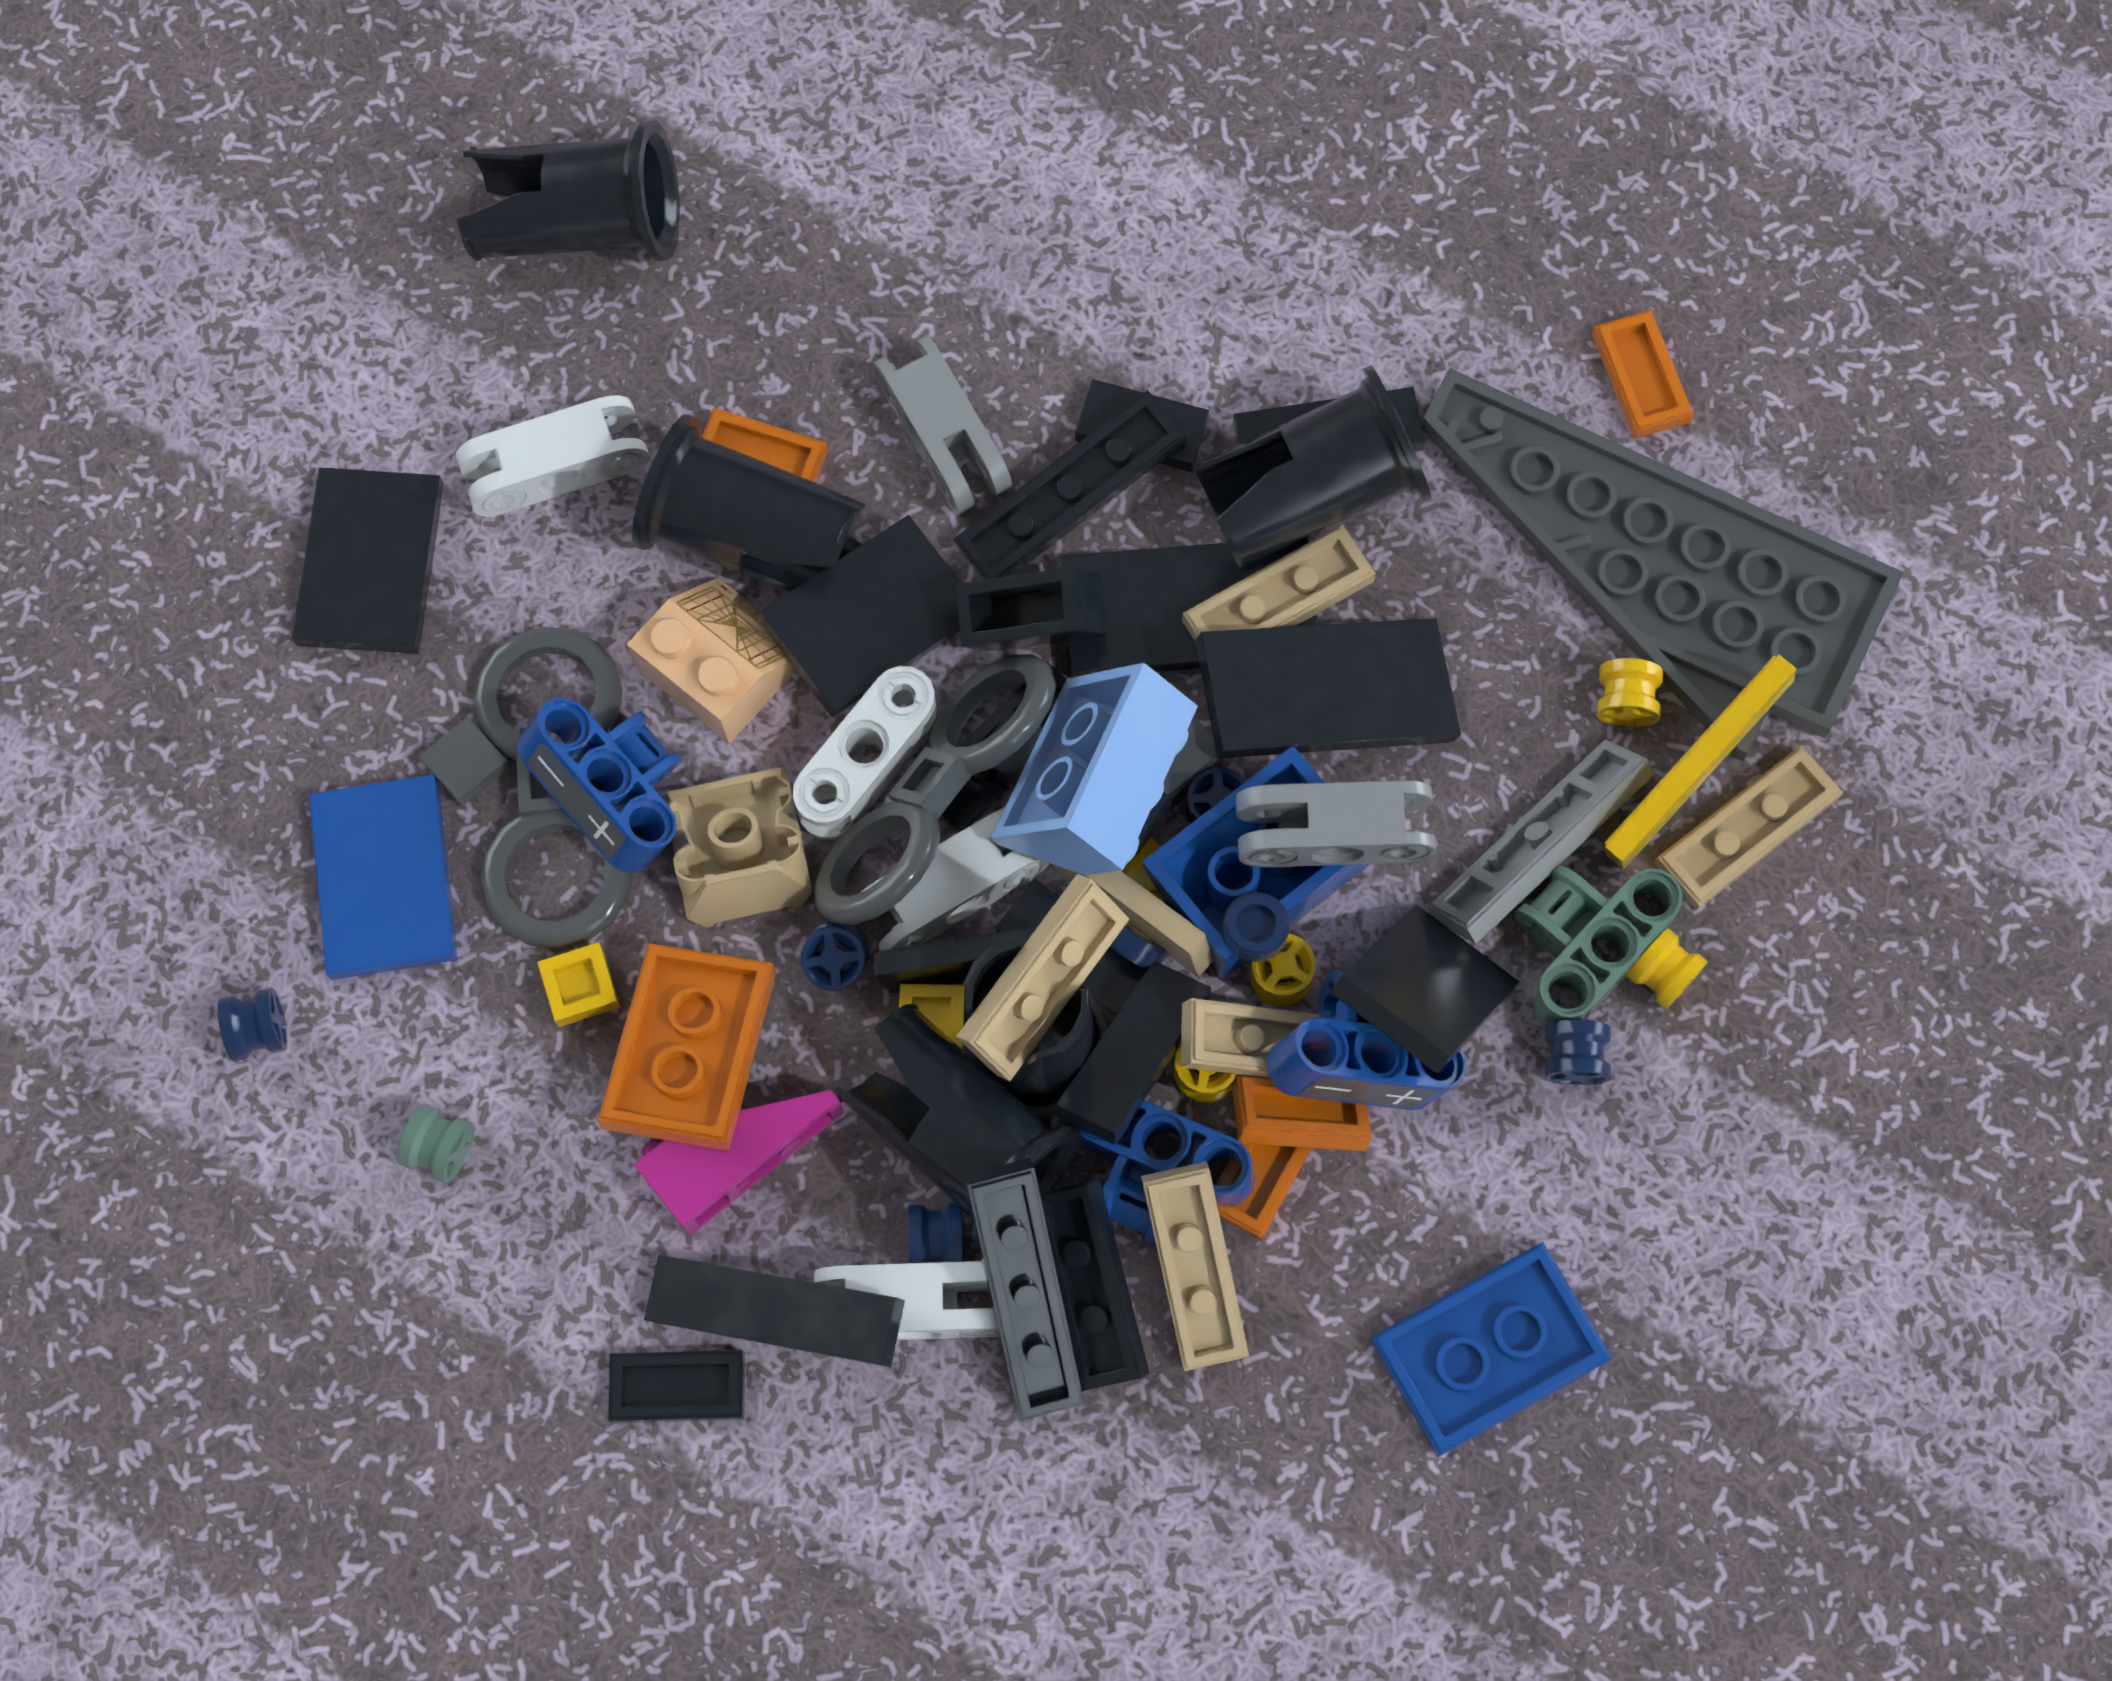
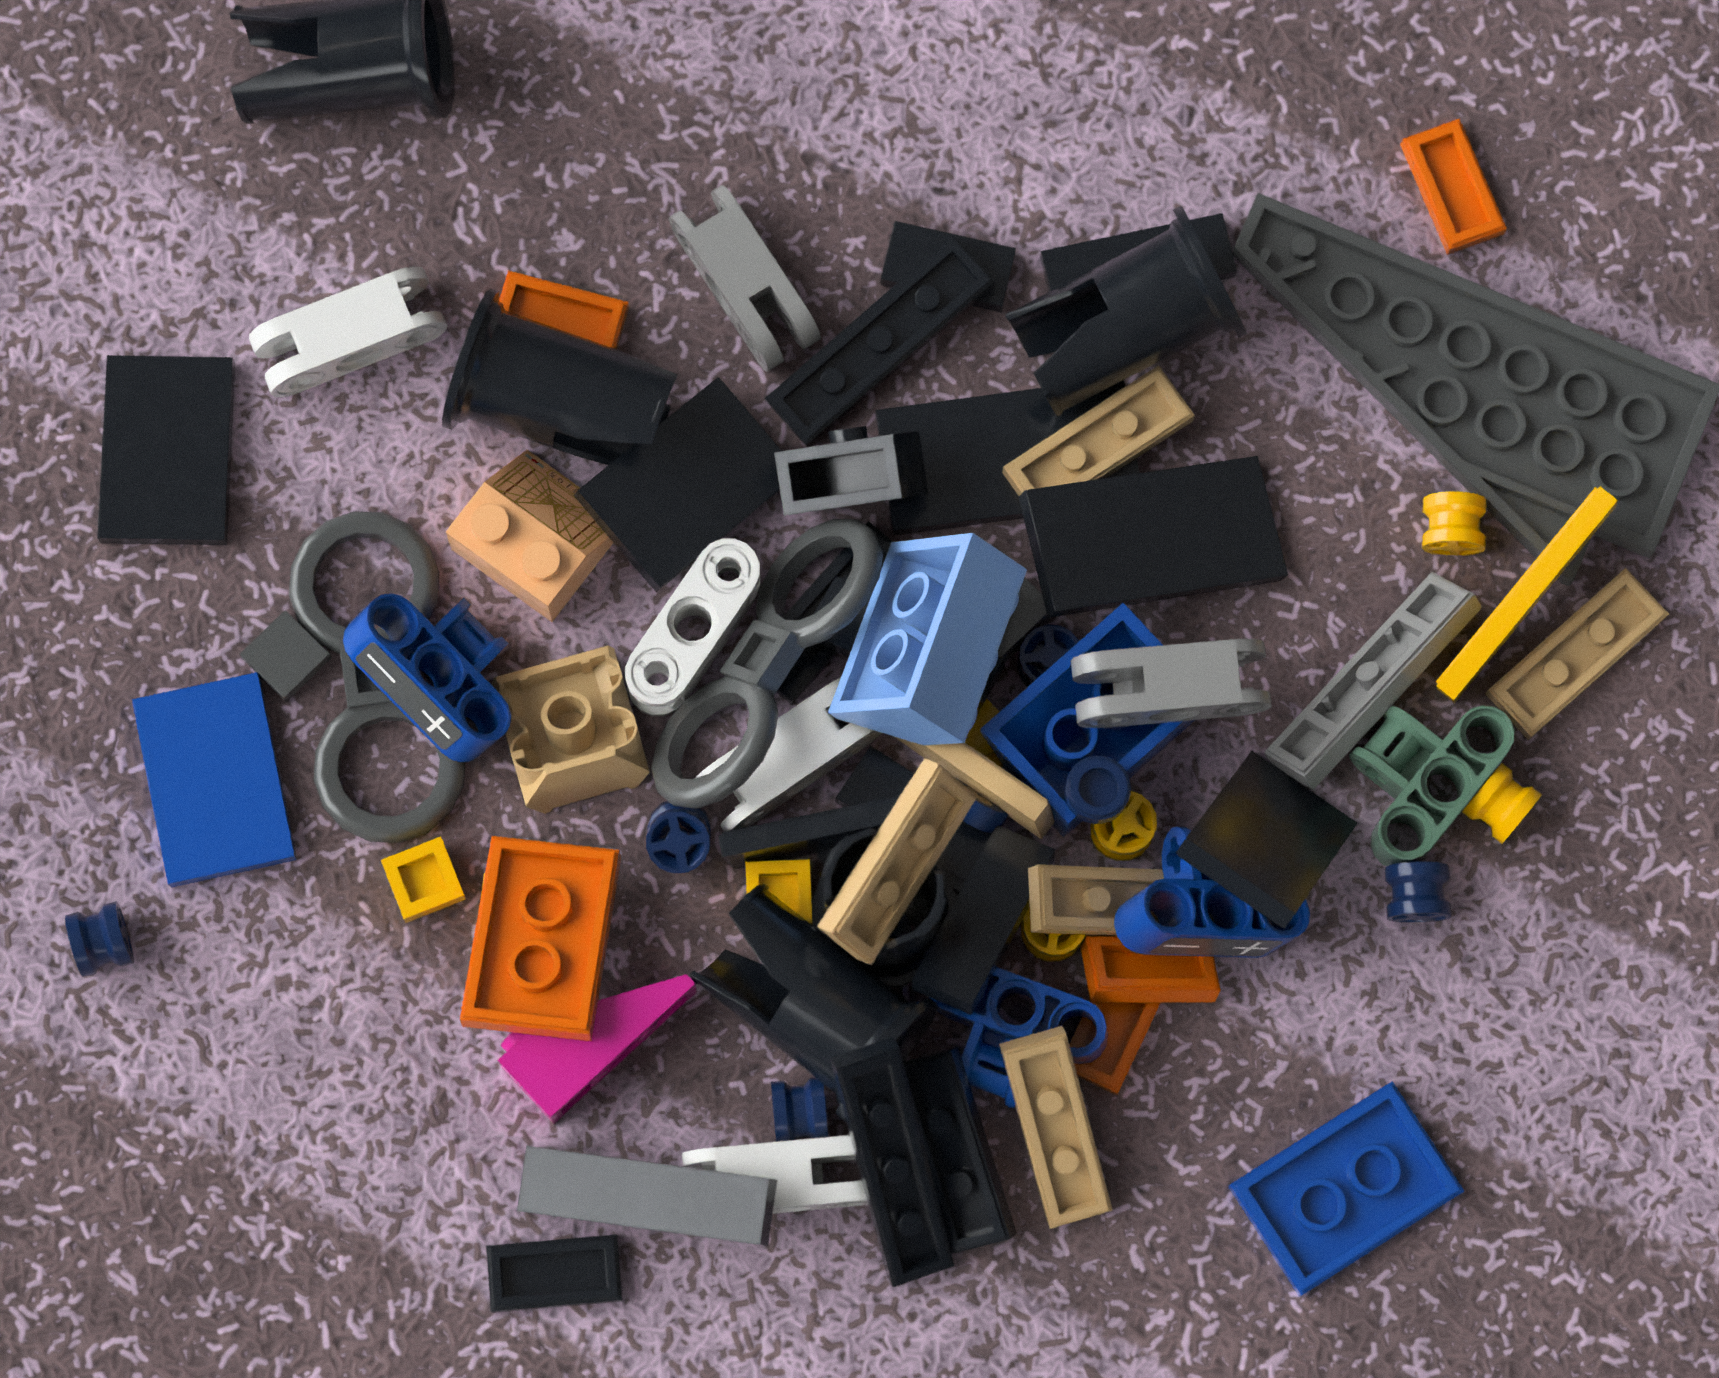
camera: 10 degrees left, 5 degrees up
(435, 1143) = (295, 1048): sand green wheel -> none

